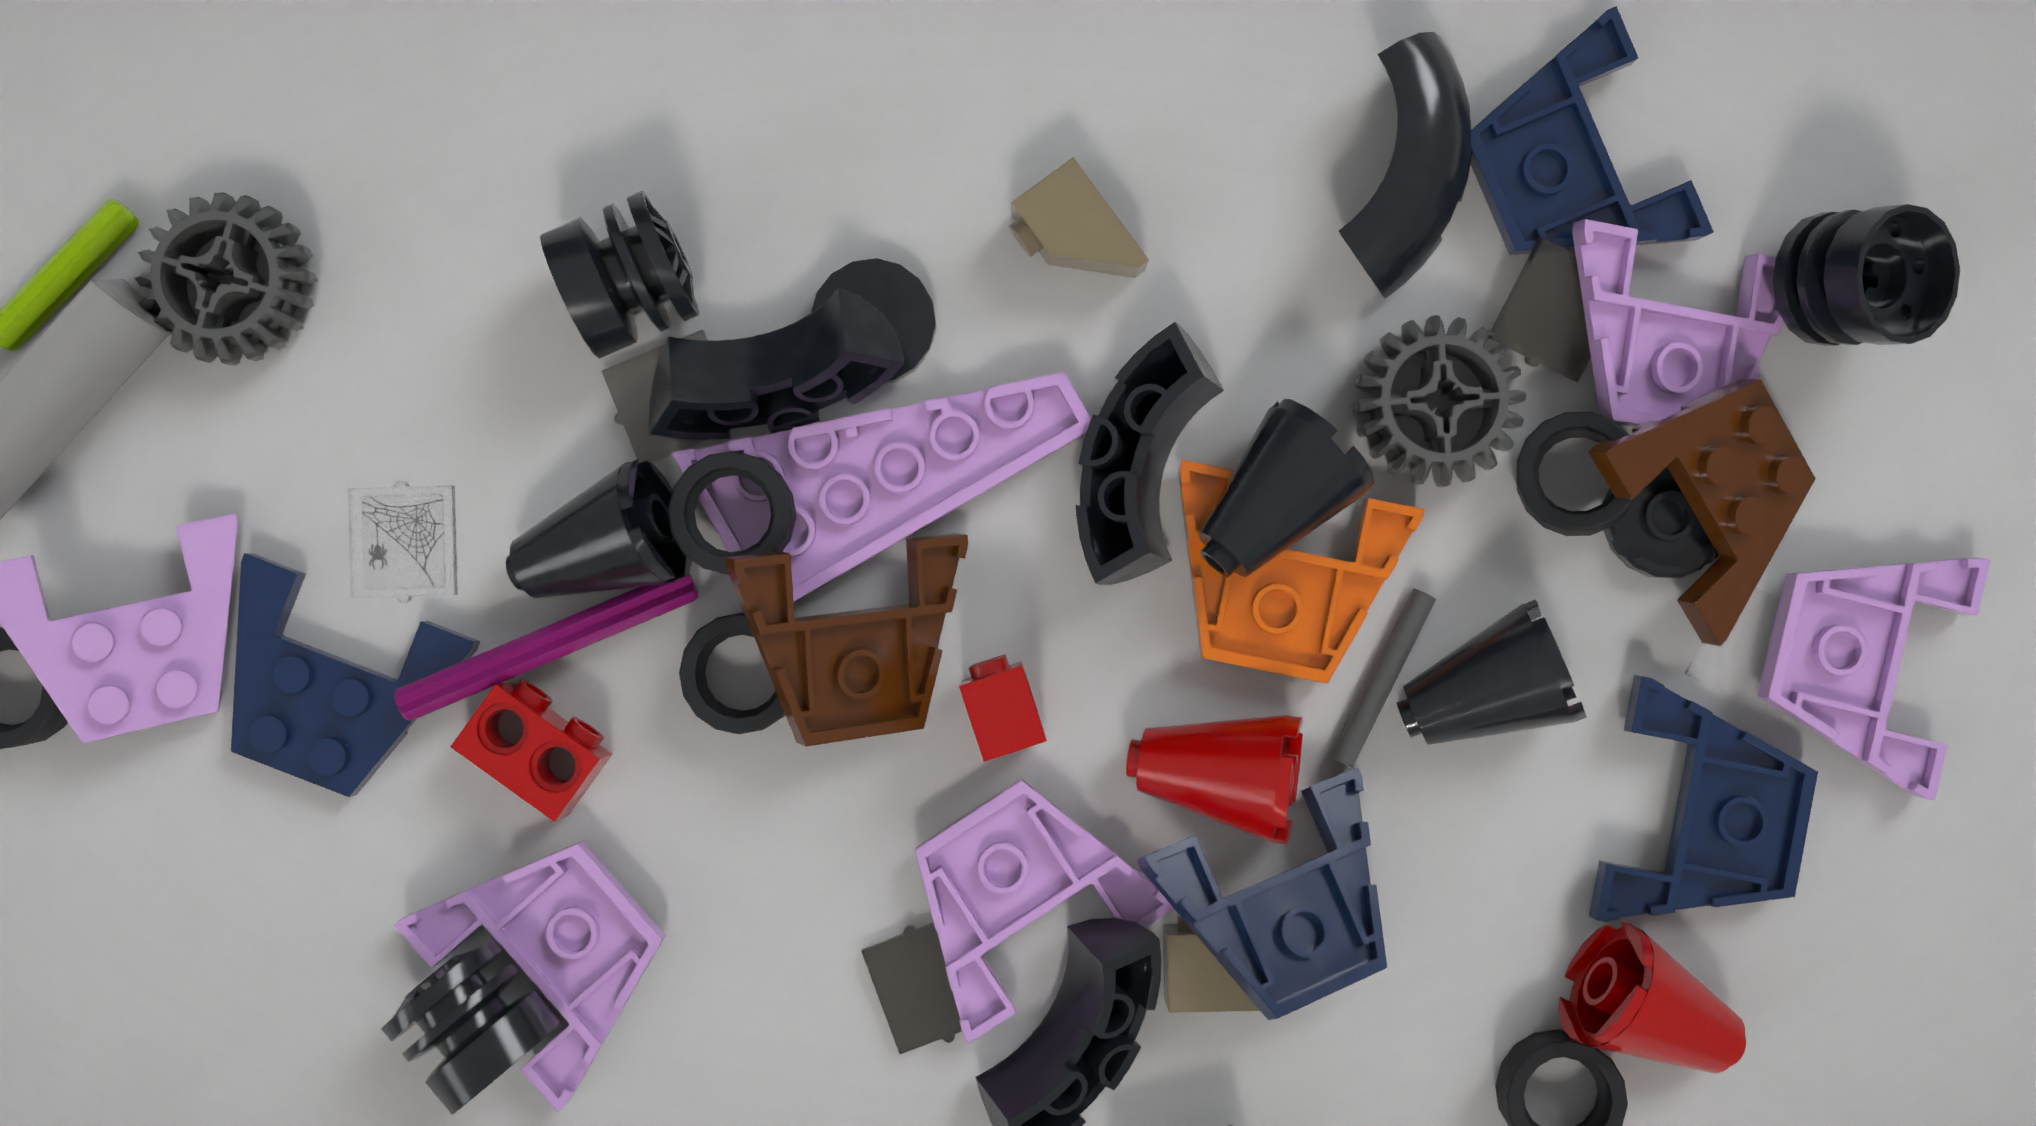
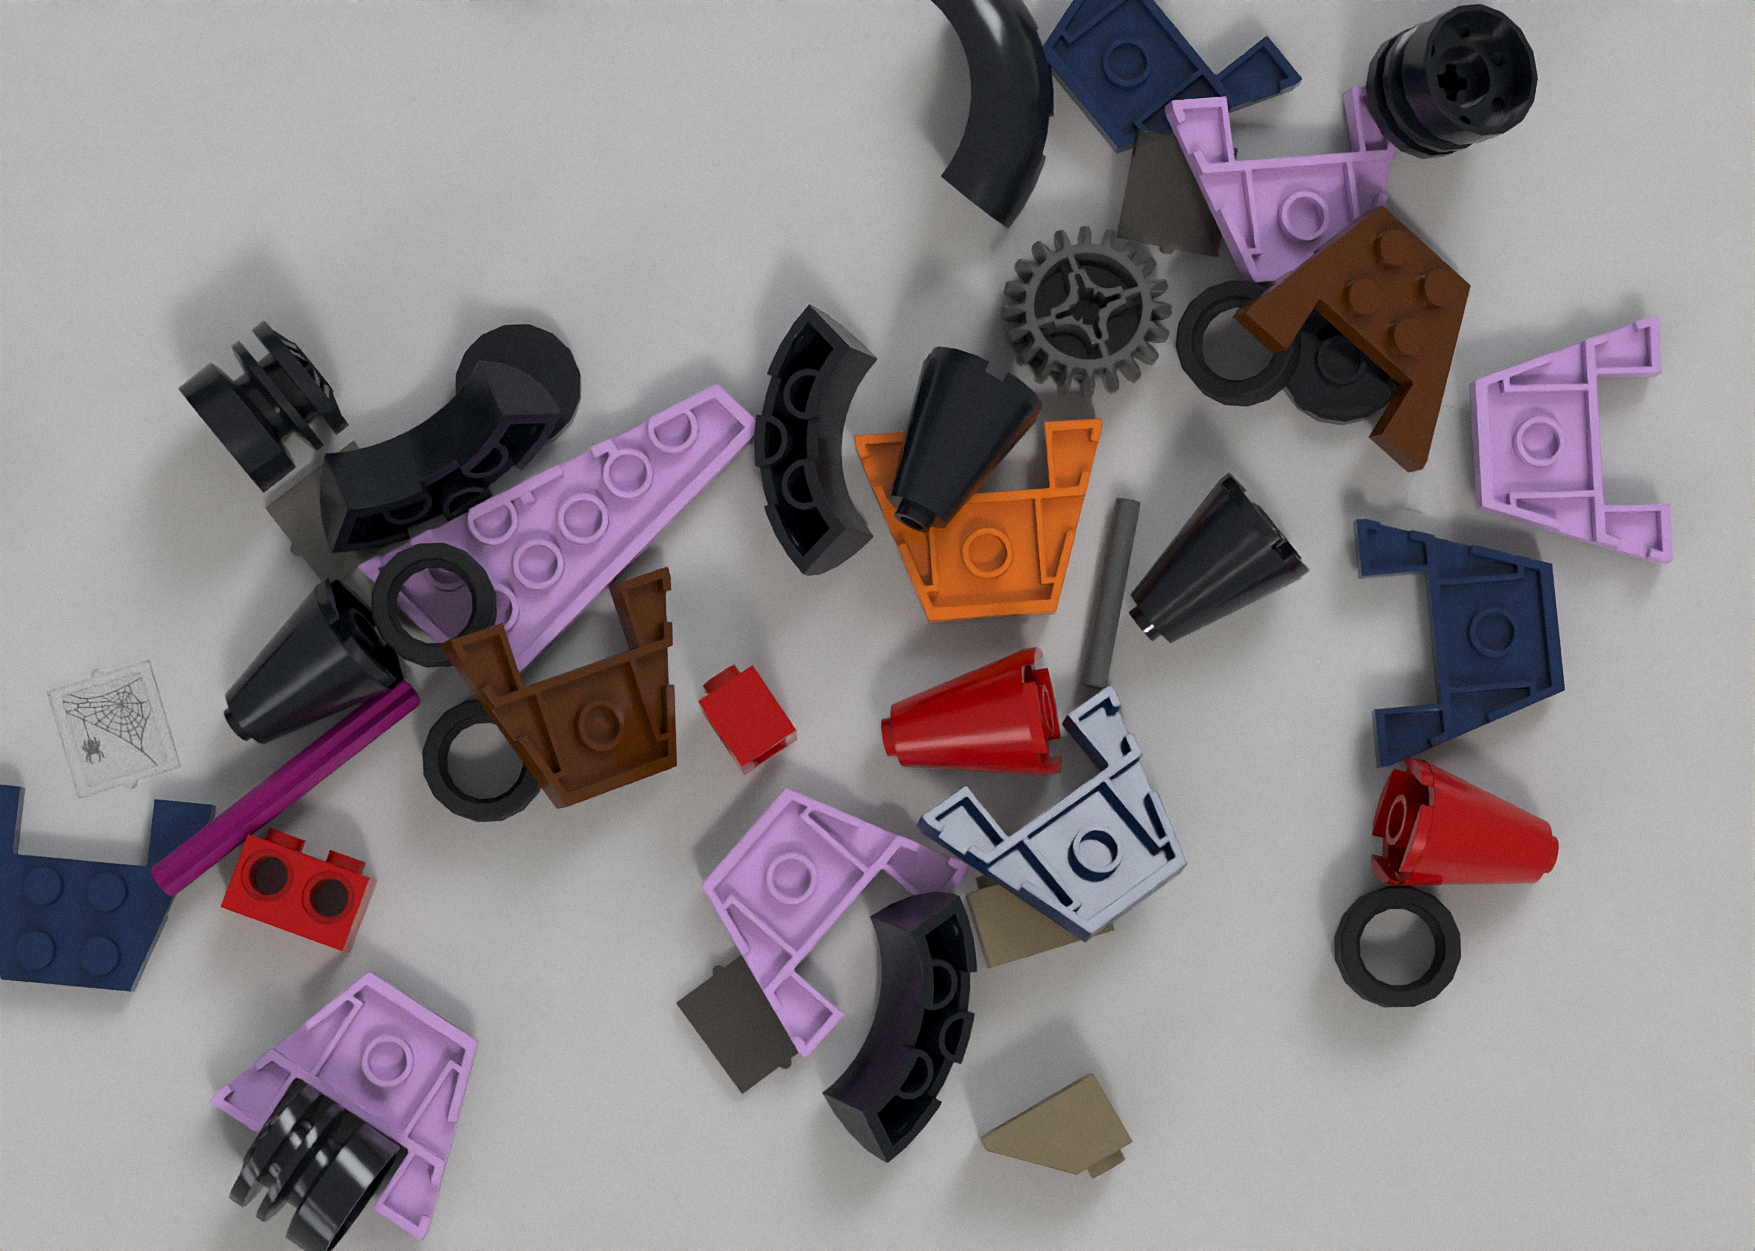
camera: 20 degrees left, 5 degrees down
(1074, 226) = (688, 241): dark tan slope -> none

